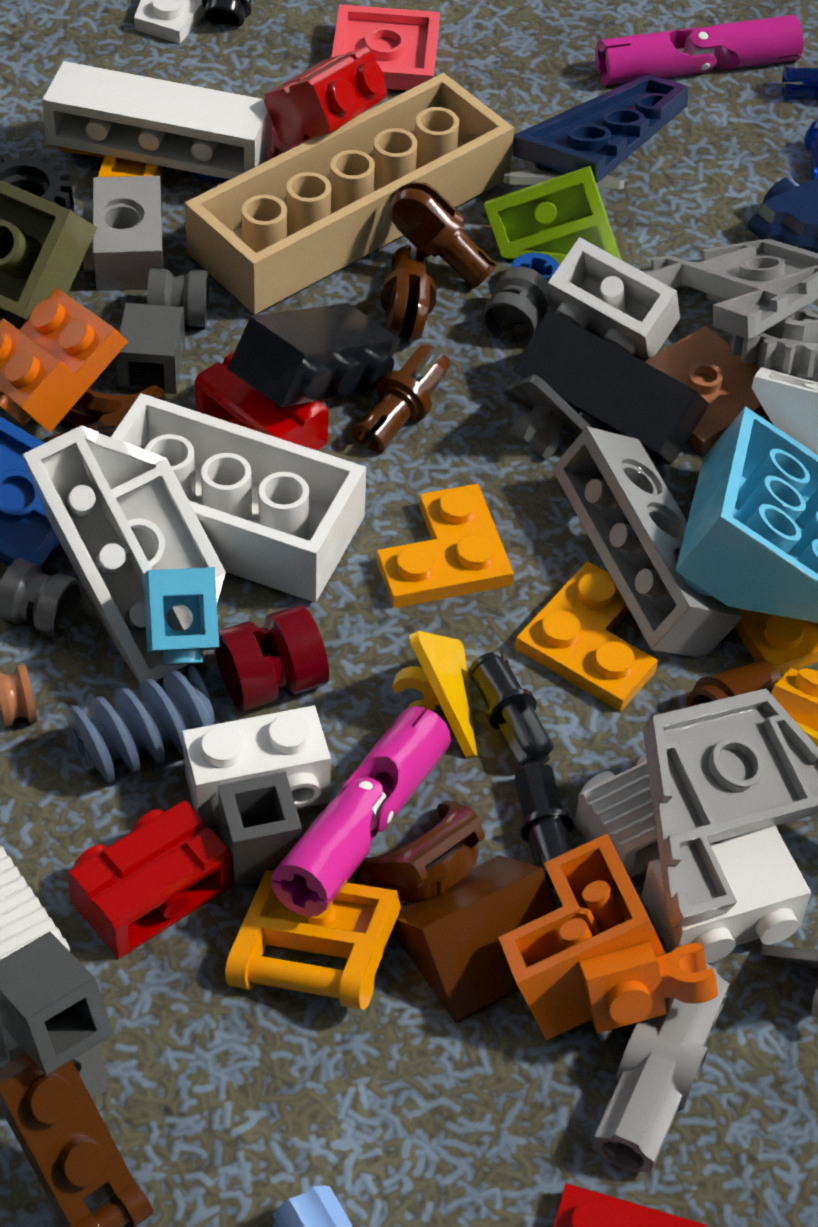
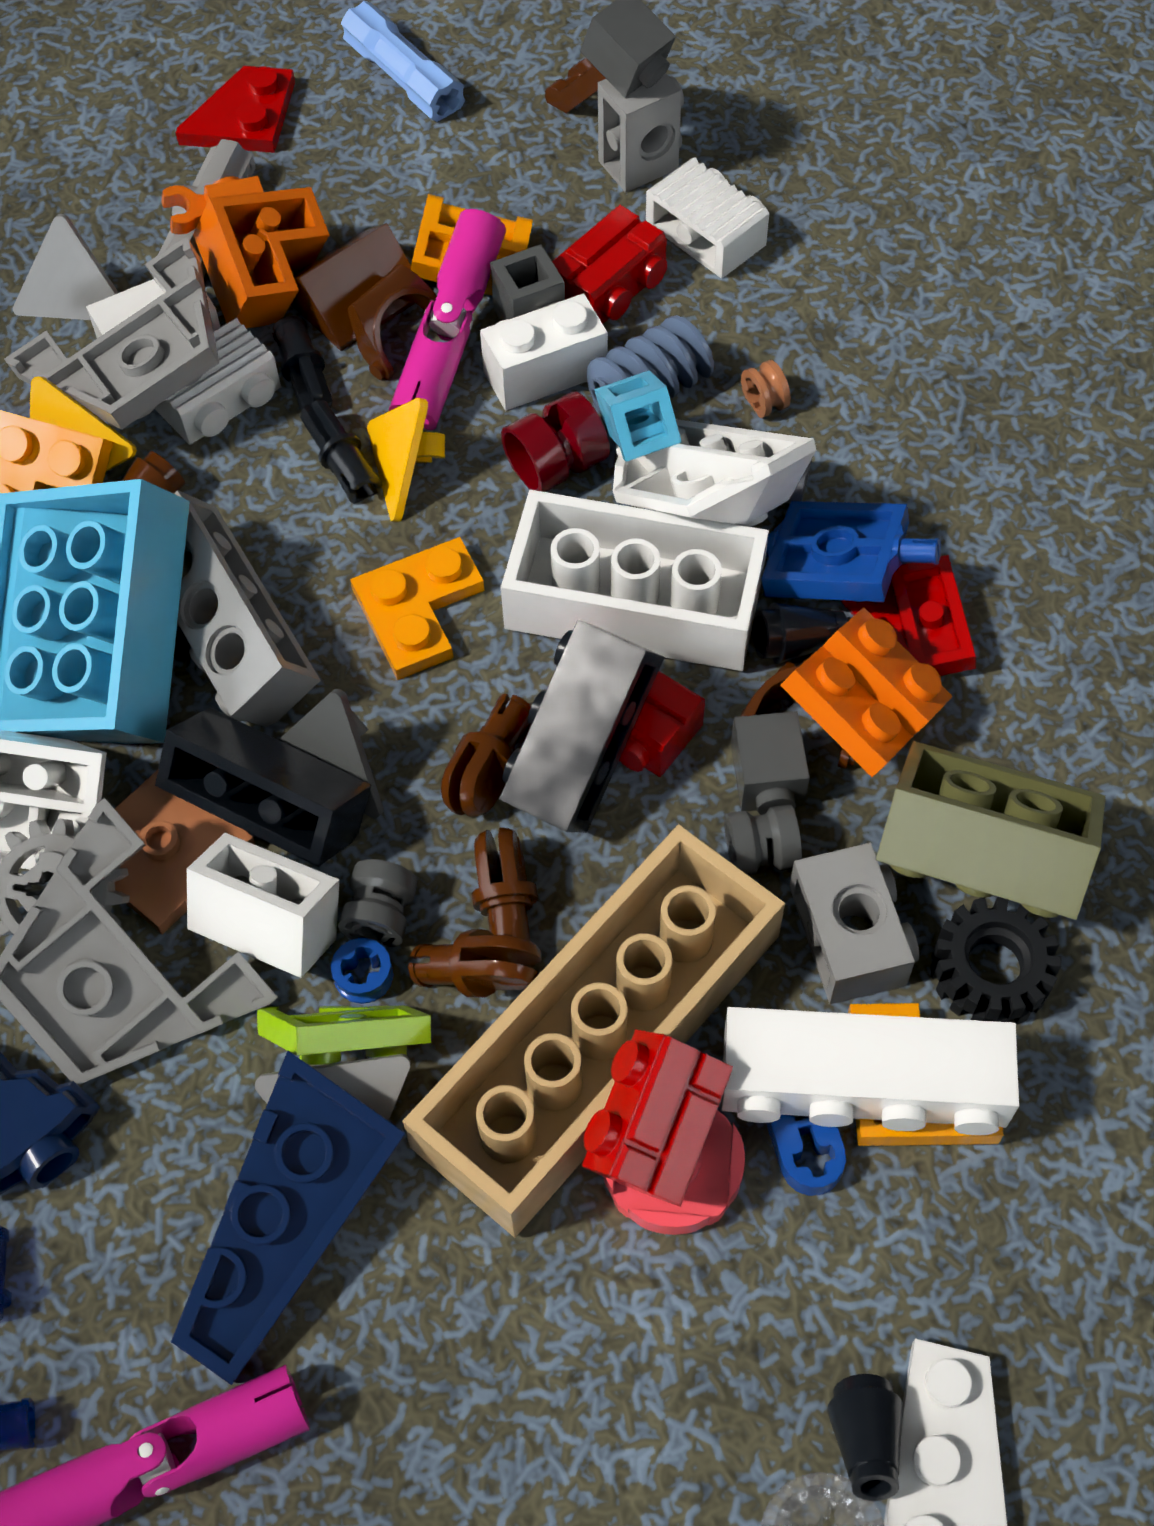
camera: 175 degrees right, 10 degrees up
(400, 40) = (615, 1367): coral plate -> none
(577, 642) = (287, 535): light orange plate -> none

